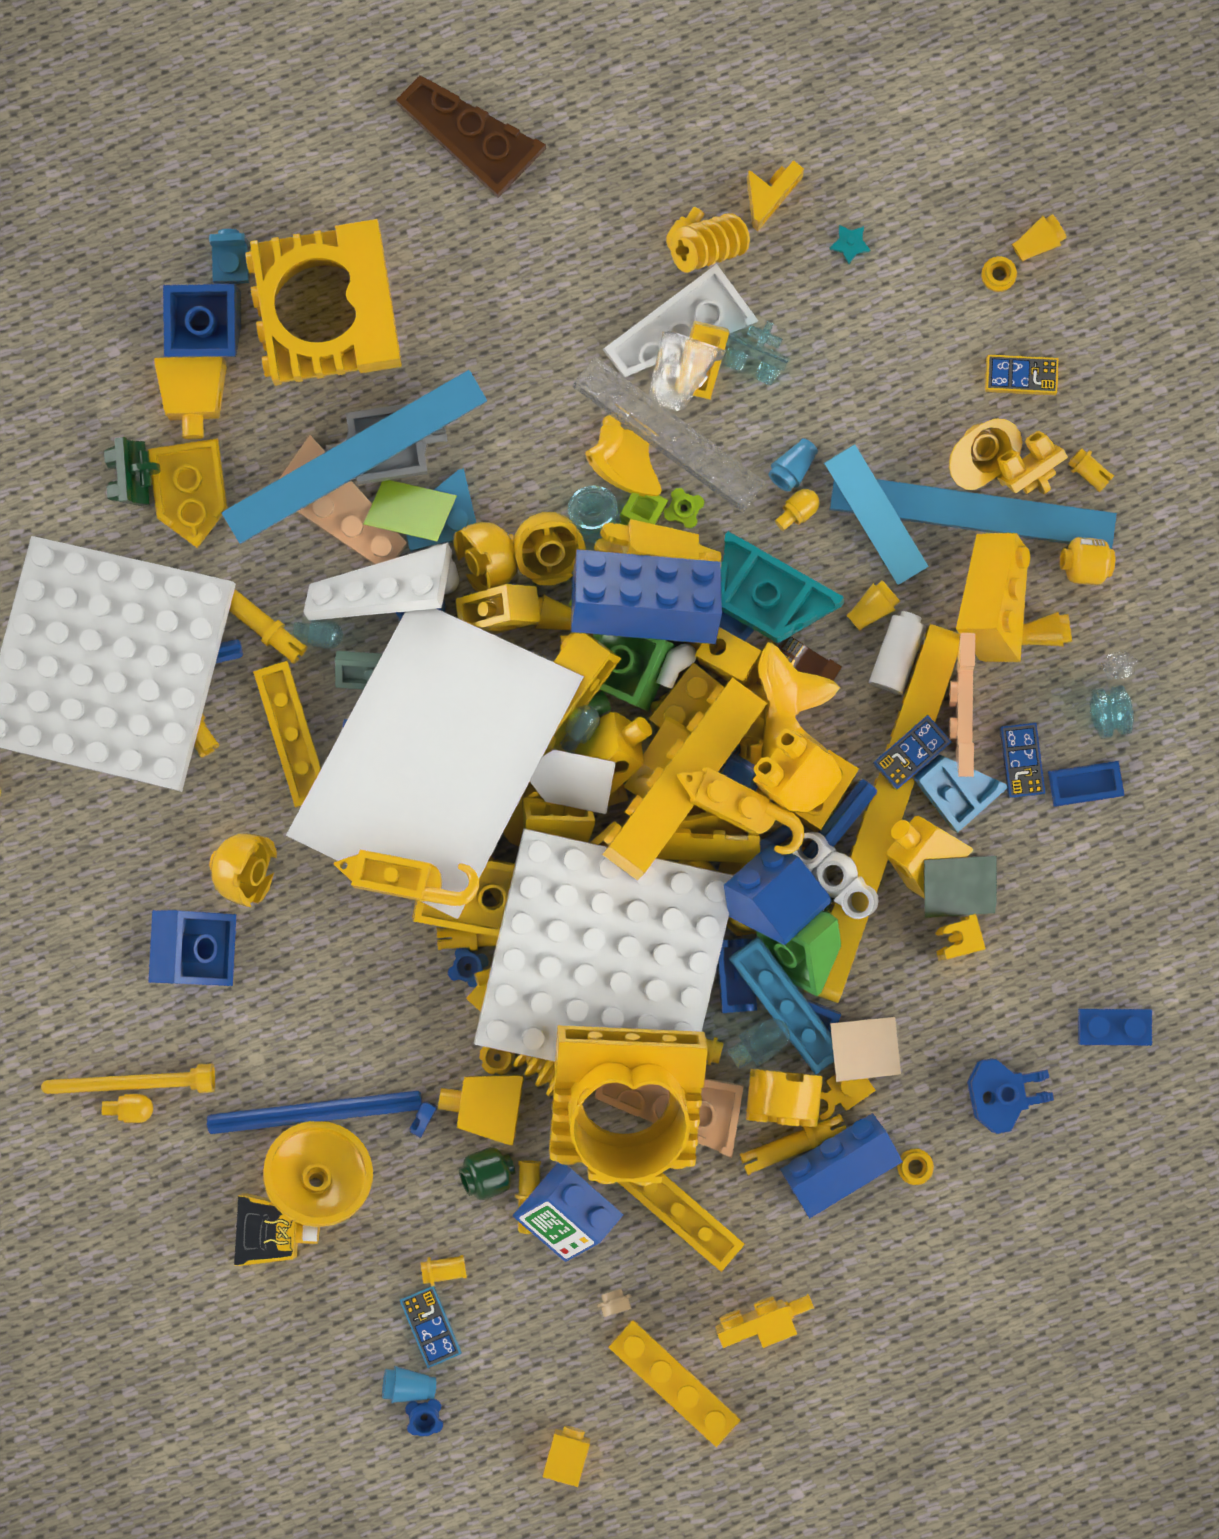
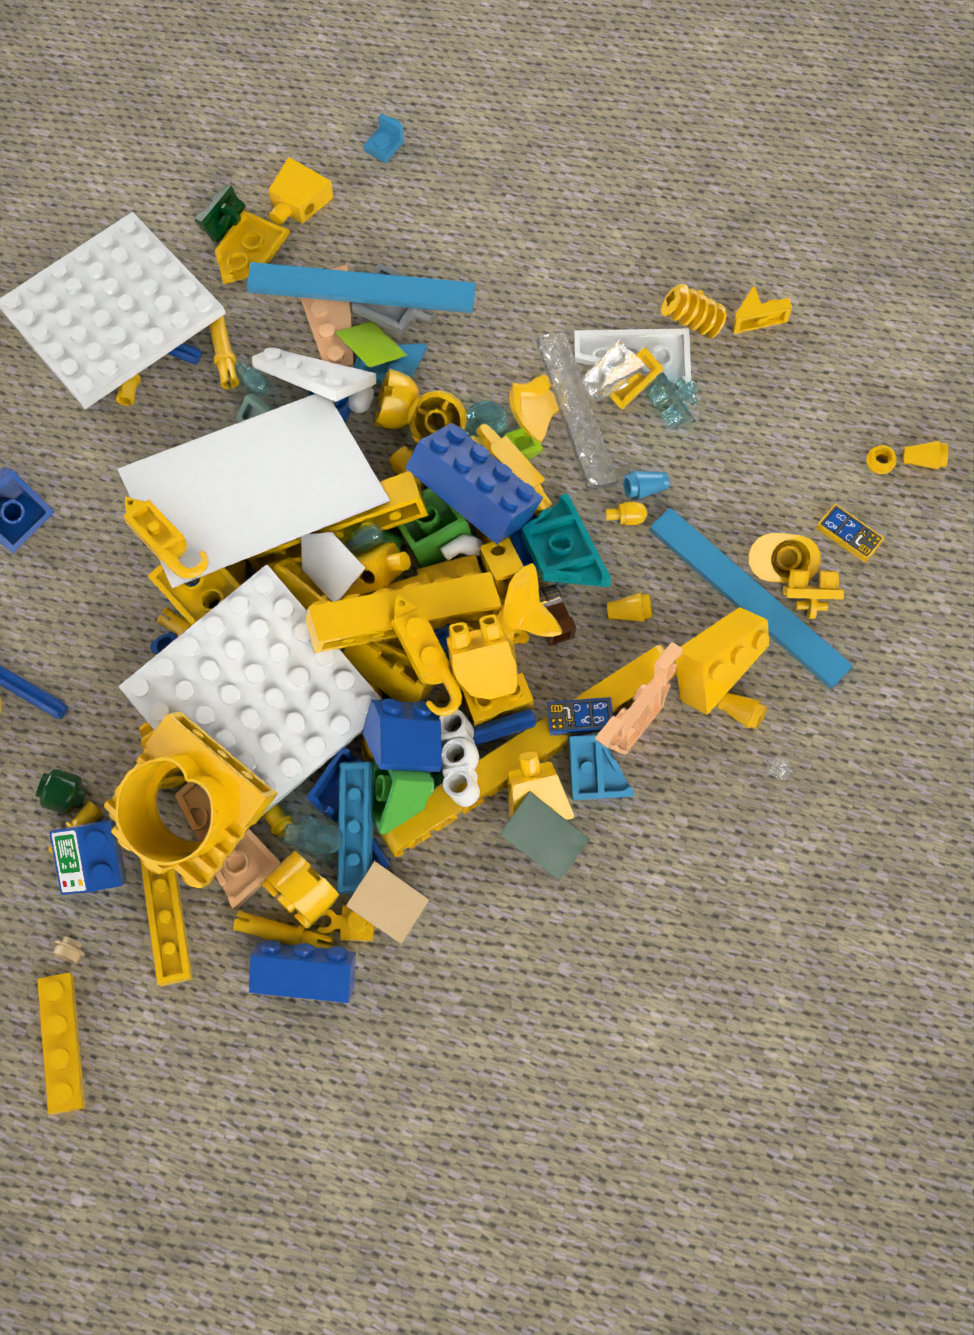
camera: 40 degrees right, 15 degrees down
(201, 320) = (337, 154): blue slope -> none
(241, 868) = (78, 478): yellow cylinder -> none
(289, 728) = (189, 412): yellow plate -> none
(370, 341) = (406, 154): yellow hose -> none
(423, 1118) = (56, 723): blue tile -> none
(482, 144) = (590, 165): reddish brown wing -> none
(486, 1105) = (100, 746): yellow torso -> none
(492, 1066) = (127, 721): yellow plate -> none
(500, 608) = (377, 433): yellow brick -> none
(674, 511) = (550, 470): lime plate -> none
(769, 1321) = (155, 1044): yellow plate -> none
(850, 243) = (791, 378): teal piece -> none
(876, 514) = (677, 550): medium azure tile -> none
(898, 653) = (623, 649): white brick -> none
(925, 1172) = (350, 1010): yellow plate -> none
(965, 935) = (514, 874): yellow hinge -> none
(1006, 1092) = (464, 1012): blue hinge -> none
(1022, 760) = (658, 786): tile -> none
(1086, 783) = (693, 835): blue tile -> none
(1087, 561) = (807, 681): yellow head -> none
(1090, 469) = (855, 624): yellow pin -> none
(1111, 711) = (749, 795): clear light blue wheel -> none
(1115, 1027) = (584, 1028): blue plate -> none

